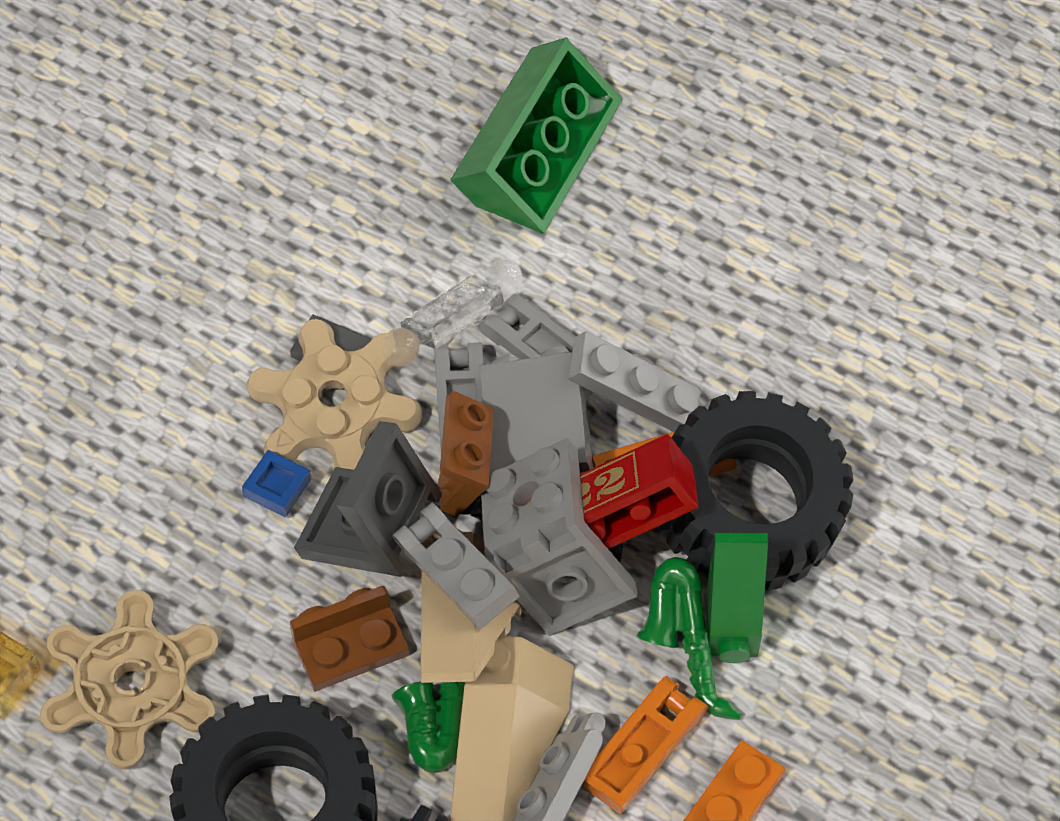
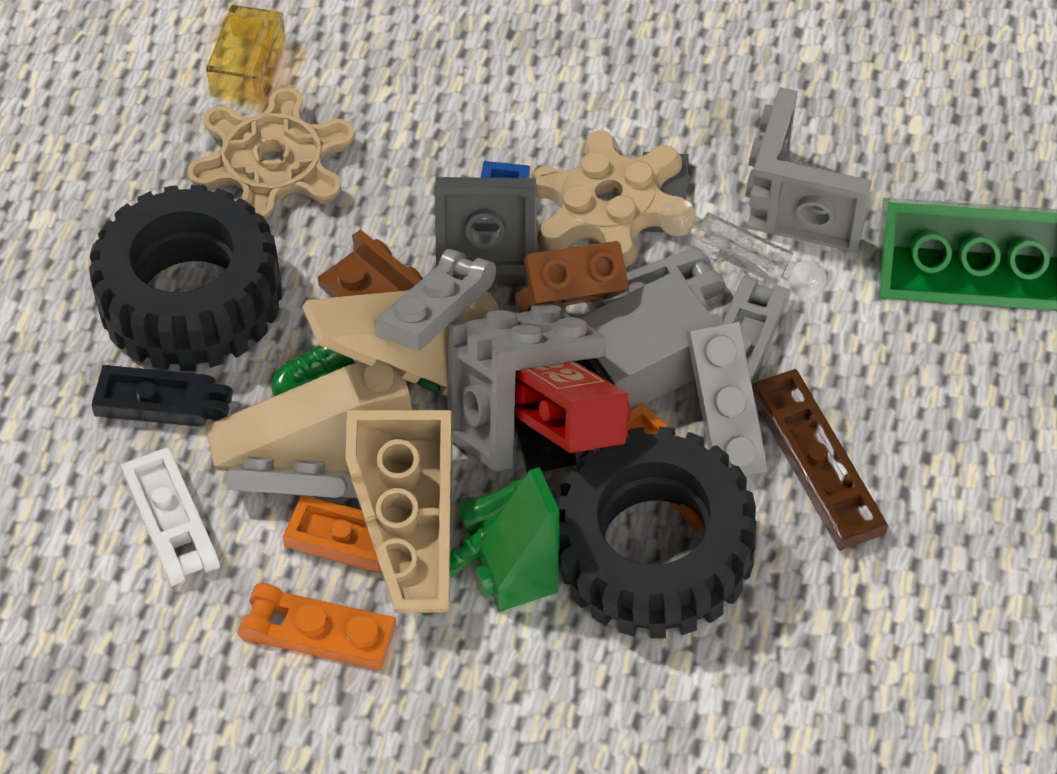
camera: 70 degrees right, 5 degrees down
(403, 258) = (785, 190): none -> light grey bracket
(636, 674) = (405, 493): none -> tan wedge
(710, 344) = (818, 460): none -> reddish brown plate

